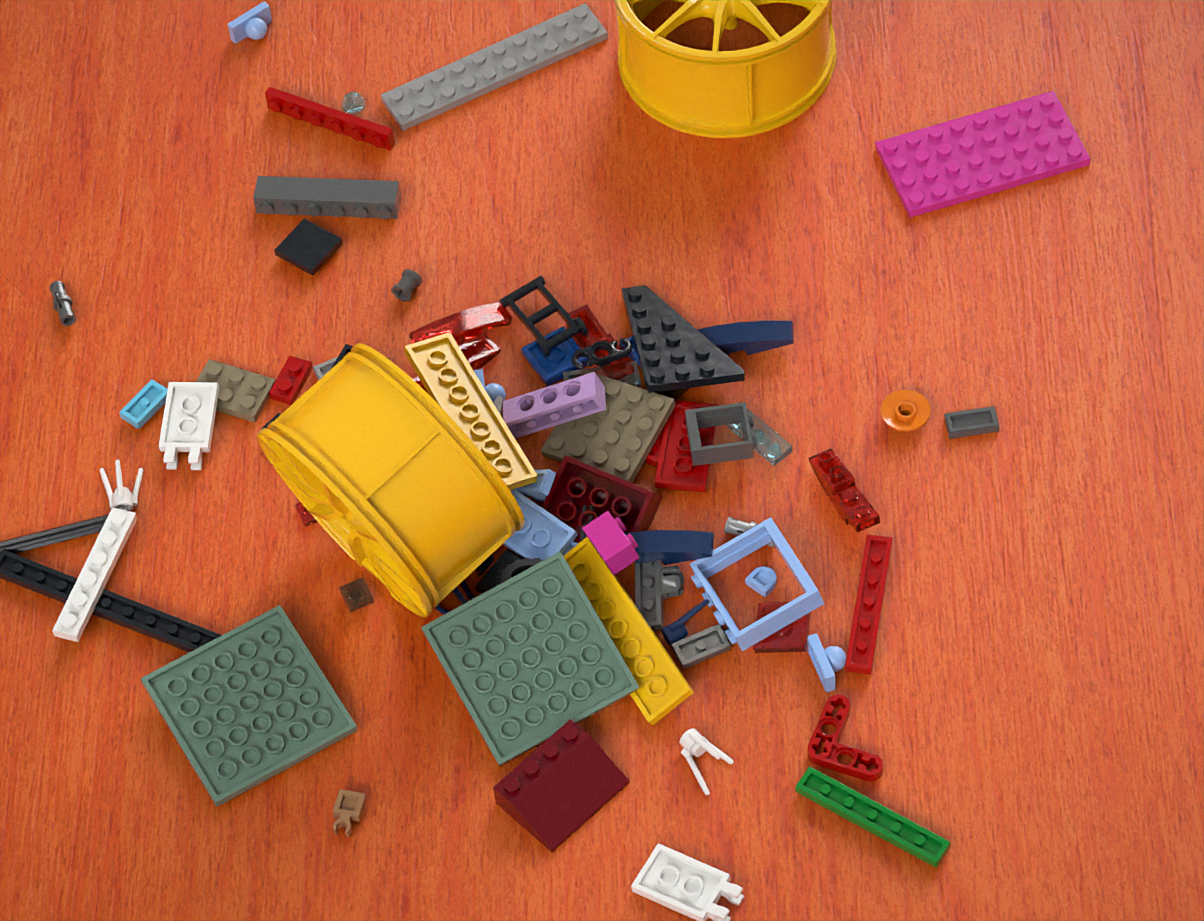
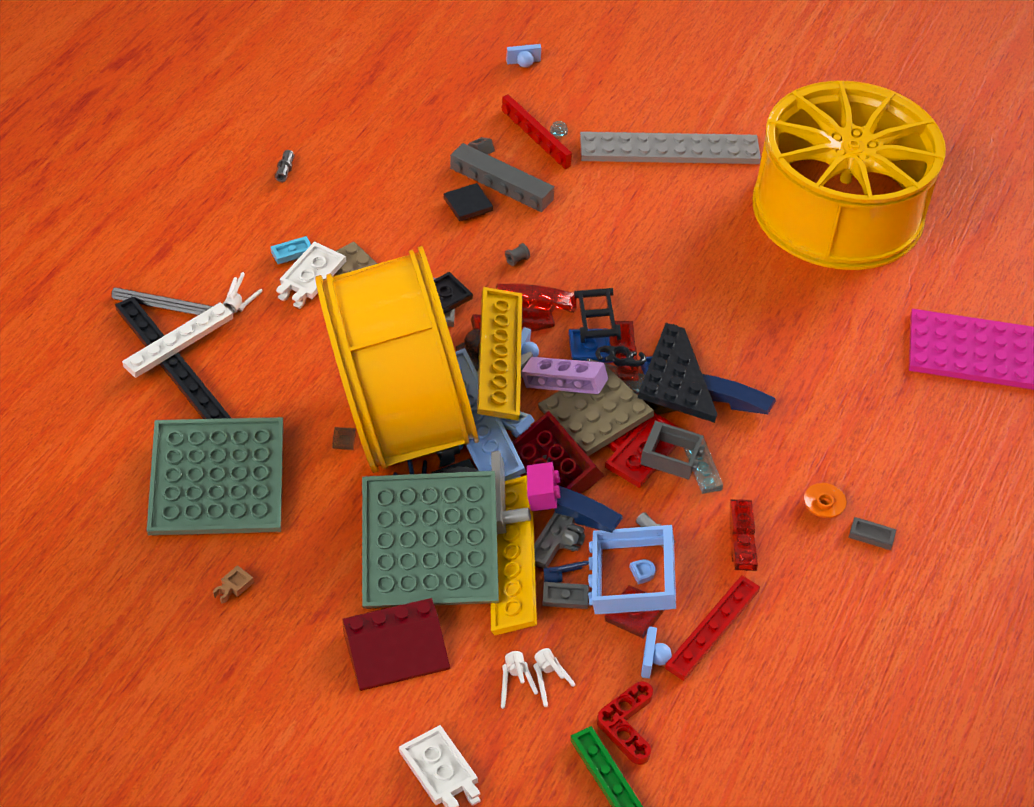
camera: 20 degrees right, 5 degrees down
(276, 166) = (483, 144): none -> dark grey slope
(595, 592) = (505, 517): none -> light grey piece
(725, 725) = (548, 663): none -> white plant

